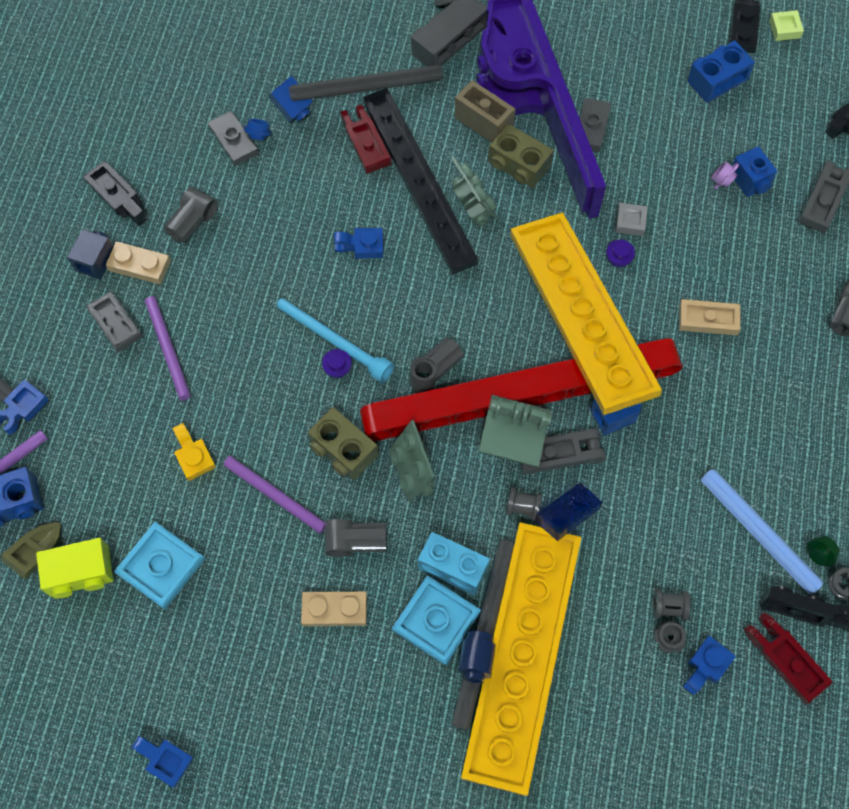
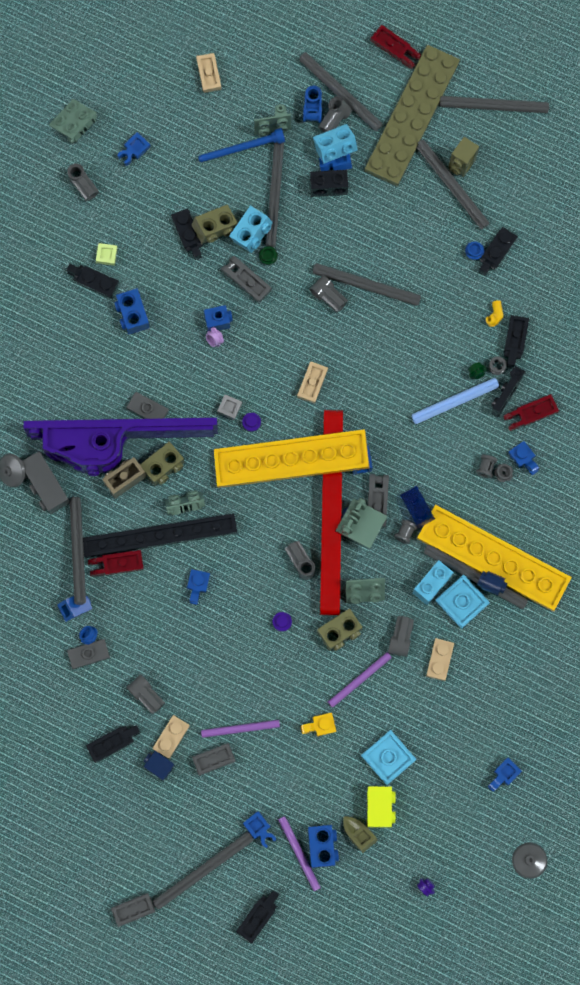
camera: 80 degrees left, 10 degrees up
(378, 367) = (292, 596): medium azure piece -> none

